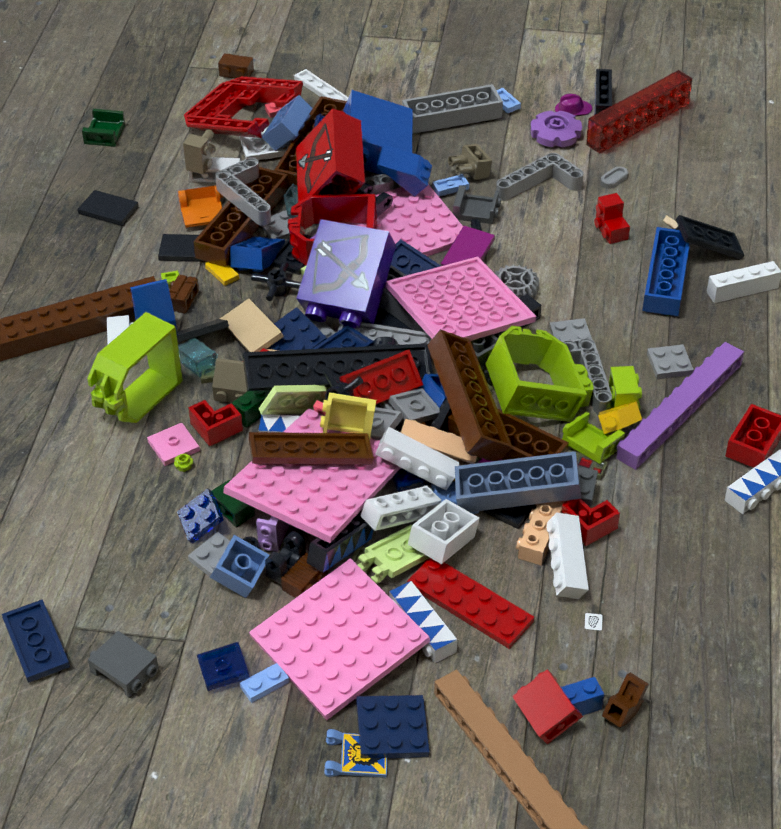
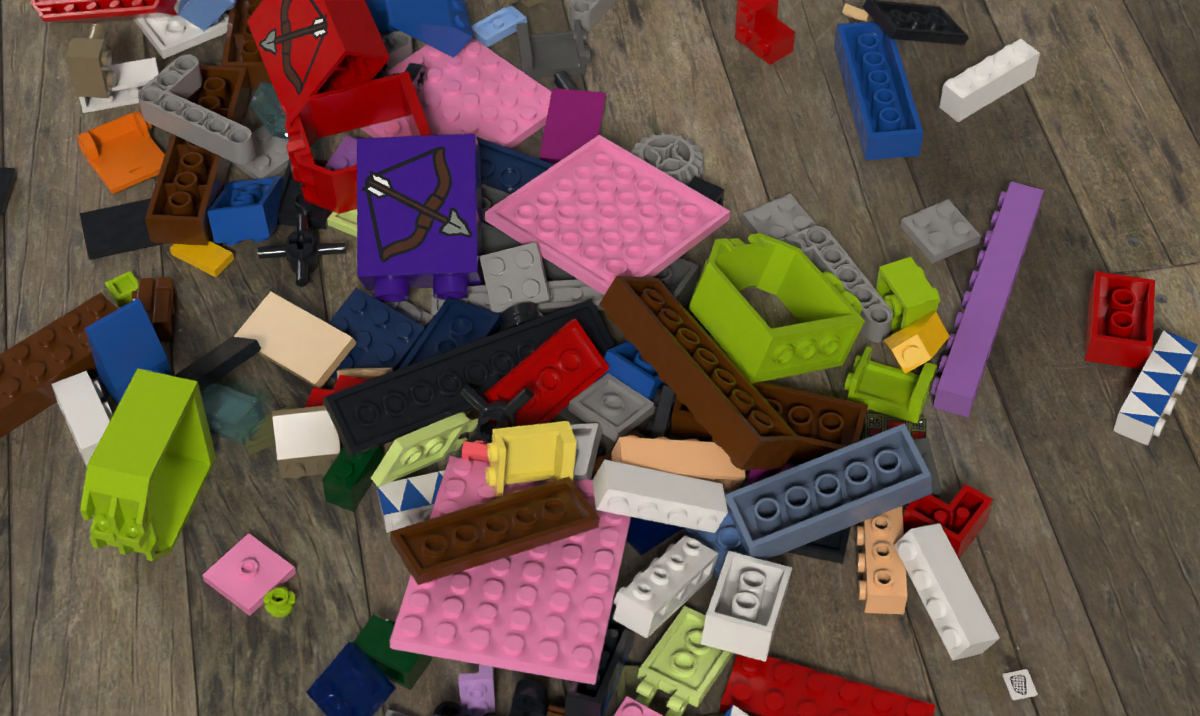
camera: 20 degrees left, 5 degrees up
(215, 425) = (306, 524): red brick -> none
(389, 321) = (515, 277): none -> light grey plate

